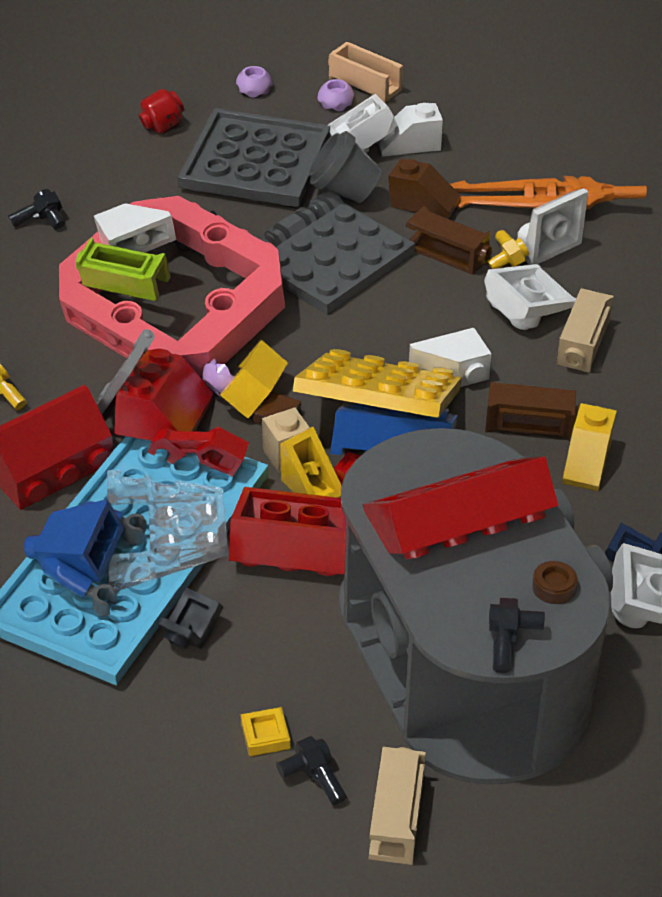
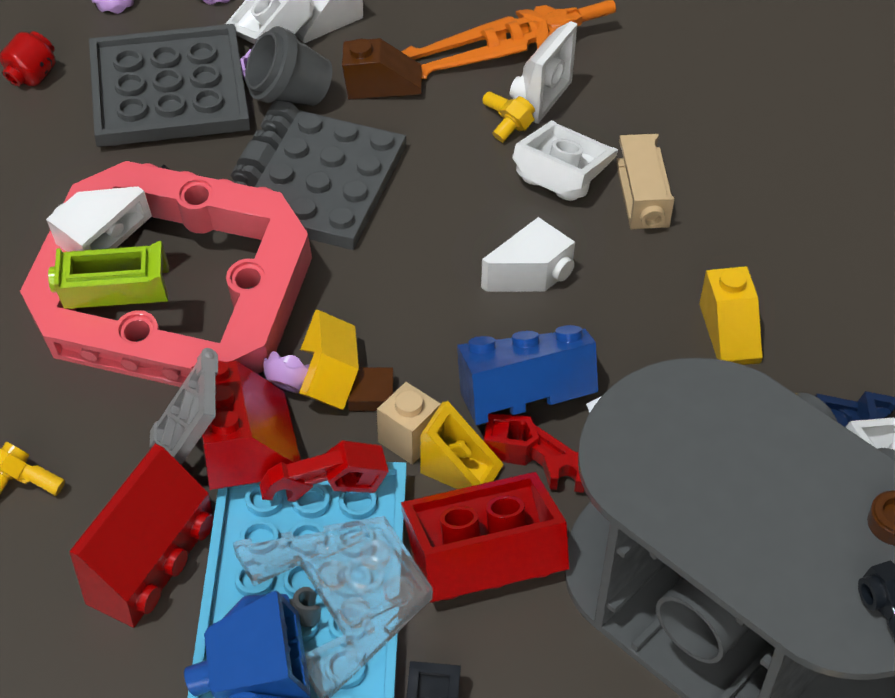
camera: 25 degrees left, 5 degrees up
(378, 383) = (483, 320): yellow plate -> none
(449, 241) = (442, 122): reddish brown window -> none
(463, 505) = (743, 460): red slope -> none
(531, 409) = (647, 293): reddish brown window -> none

